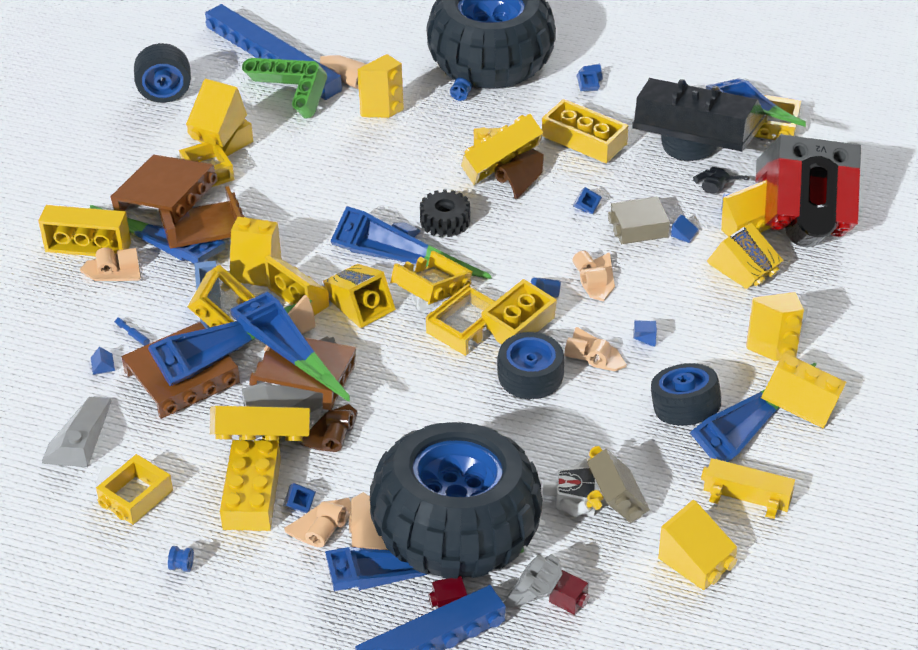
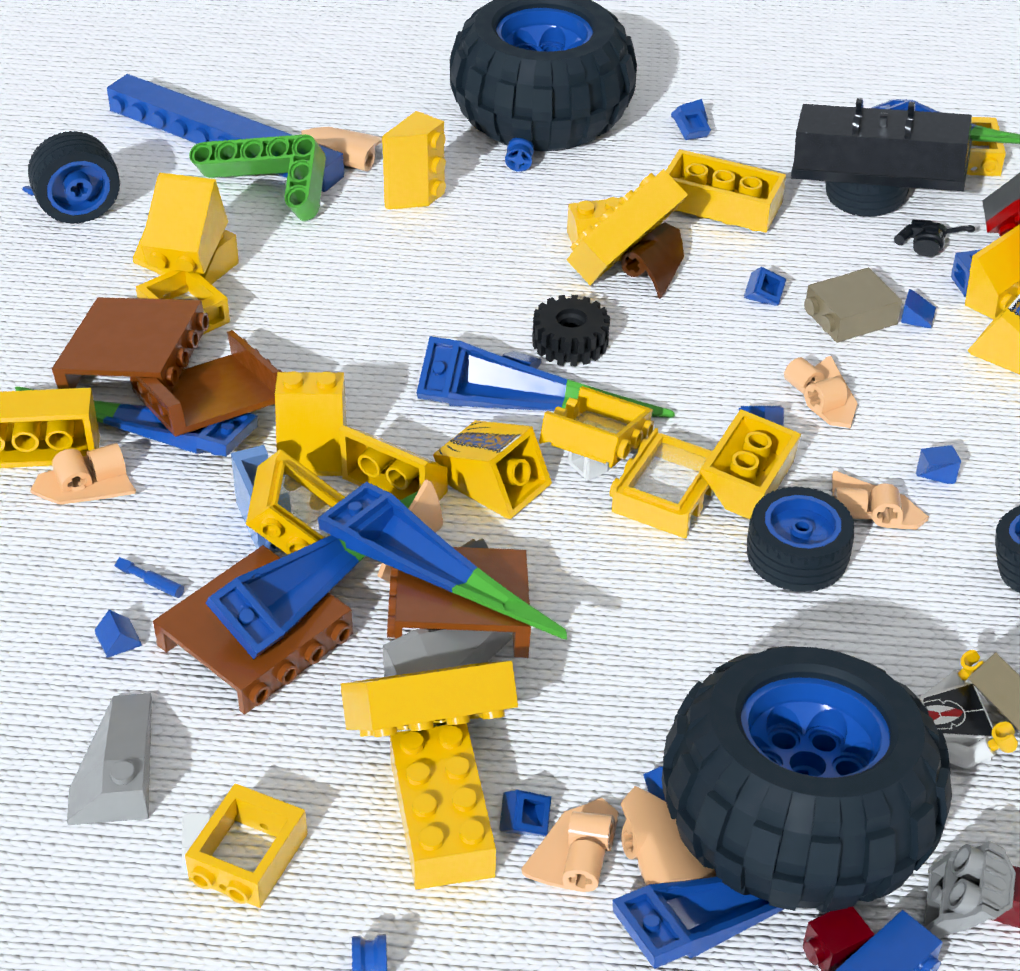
camera: 15 degrees left, 0 degrees up
(331, 429) = (536, 688): reddish brown panel -> none

